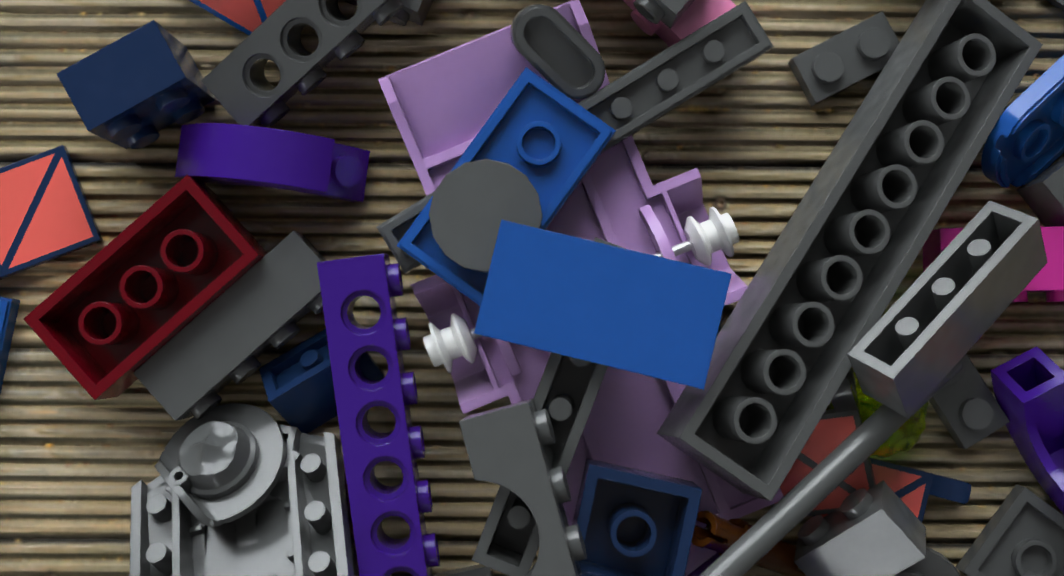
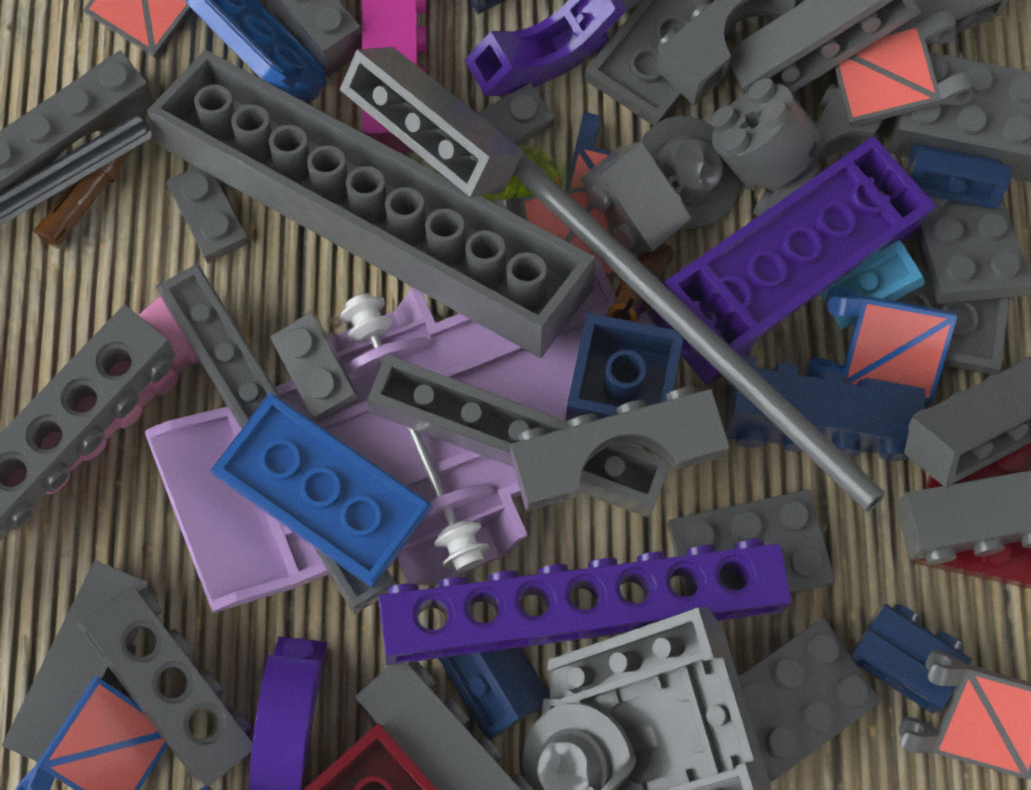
camera: 90 degrees left, 15 degrees down
(470, 208) = (346, 500): dark grey tile -> none
(557, 51) = (194, 446): dark grey tile -> none
(602, 304) = (425, 392): blue tile -> none
(652, 179) = (314, 367): none -> dark grey plate

